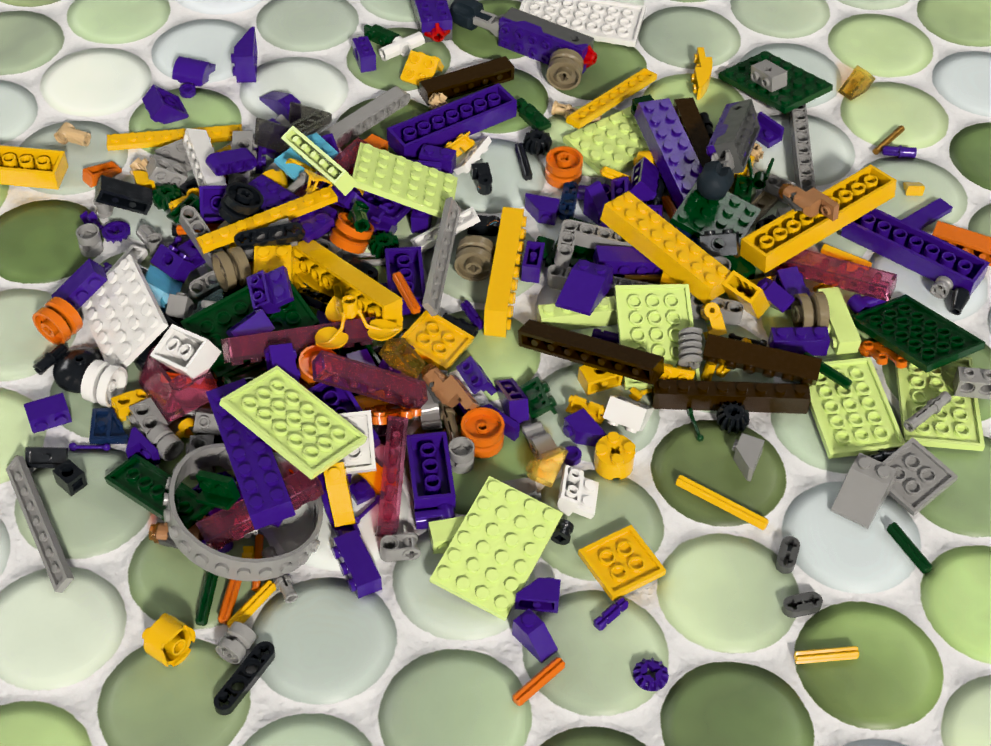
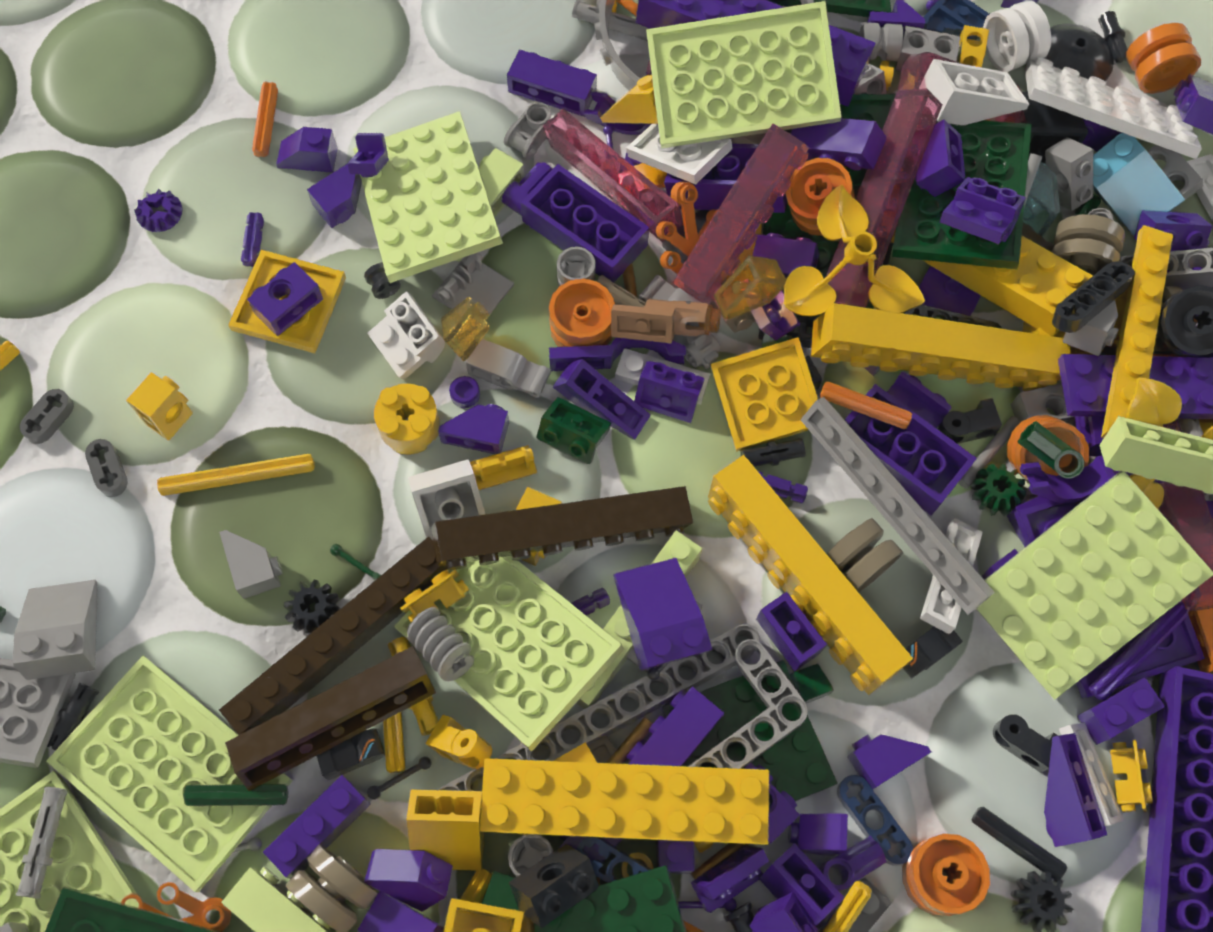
camera: 135 degrees right, 20 degrees up
(493, 149) = (1070, 799): none -> dark purple slope
(510, 582) = (371, 155): none -> dark purple bracket
(617, 542) = (281, 314): none -> dark purple brick
(737, 547) = (160, 405): none -> yellow brick

